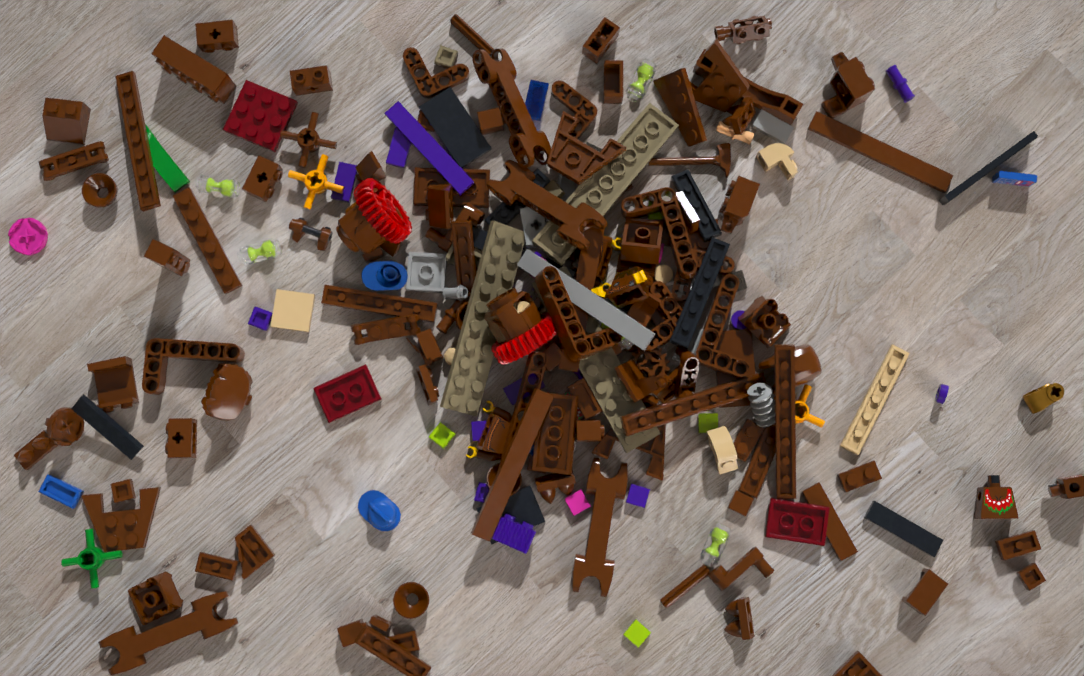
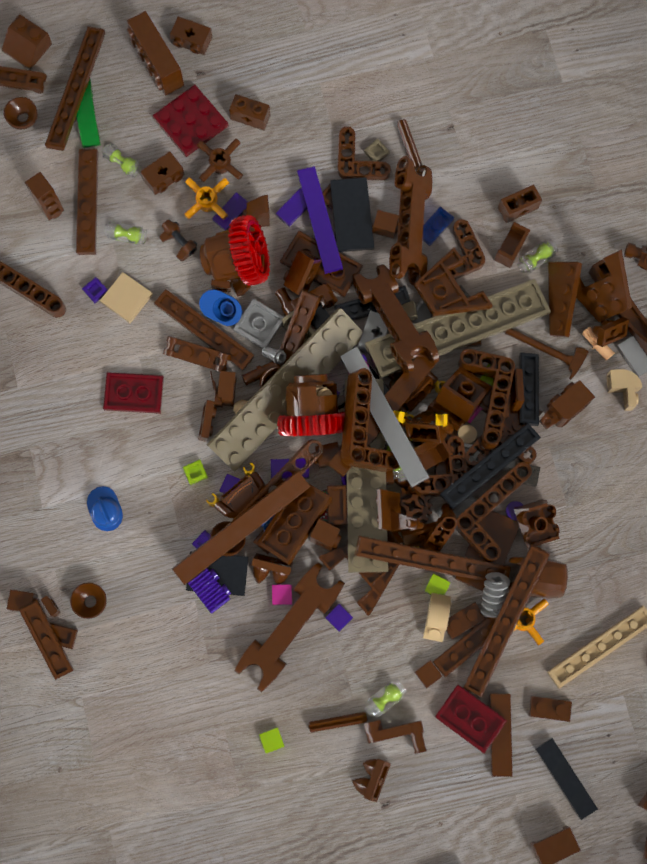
camera: 25 degrees right, 5 degrees down
(227, 392) = (31, 336): reddish brown animal -> none

